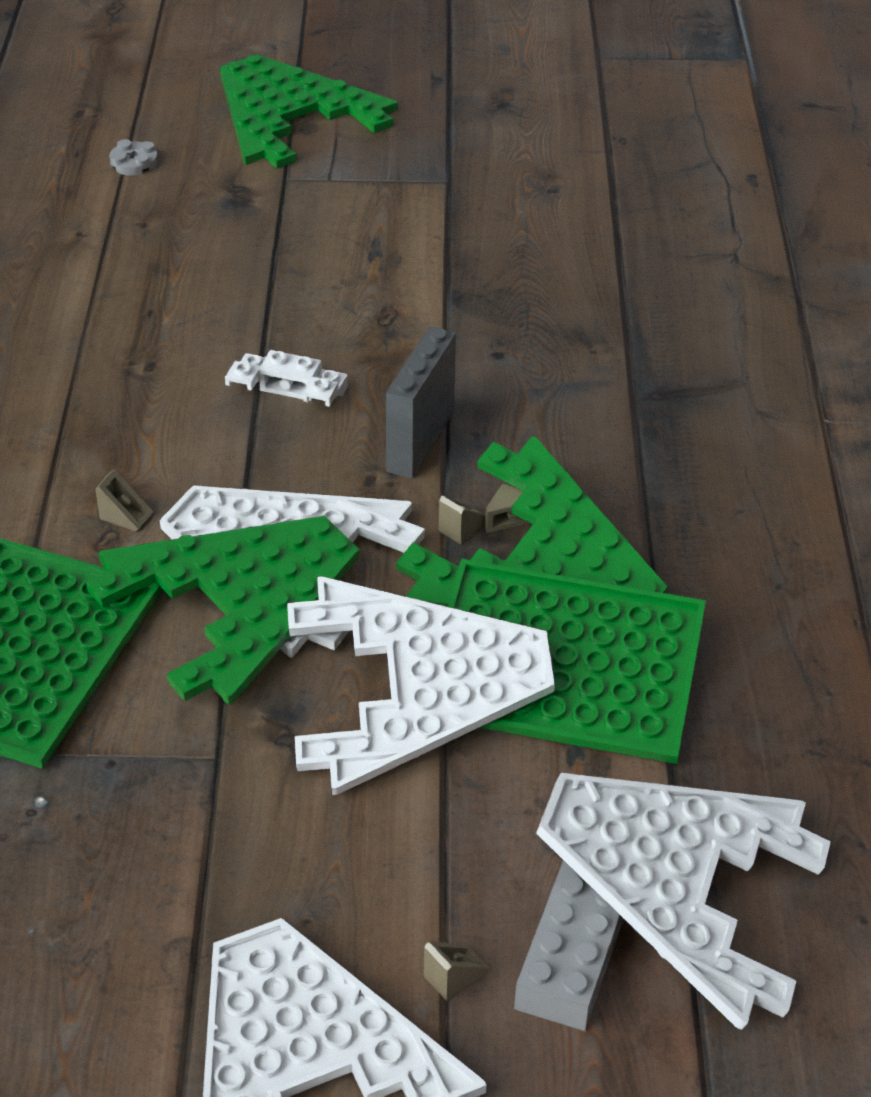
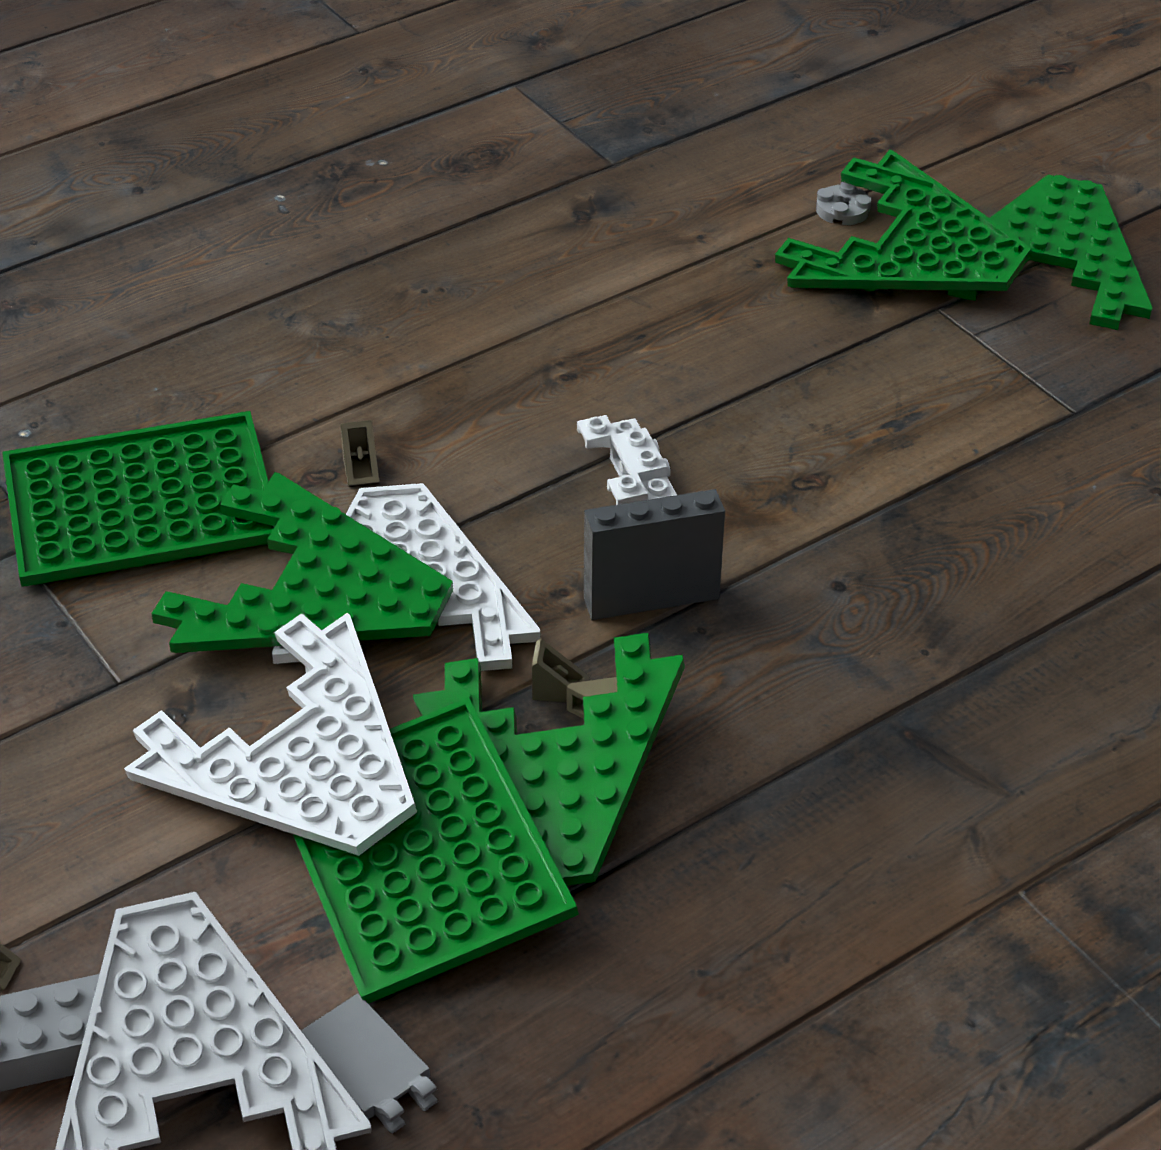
camera: 55 degrees right, 0 degrees up
(233, 138) = (929, 246): none -> green wing
(738, 774) = (371, 1061): none -> light grey tile

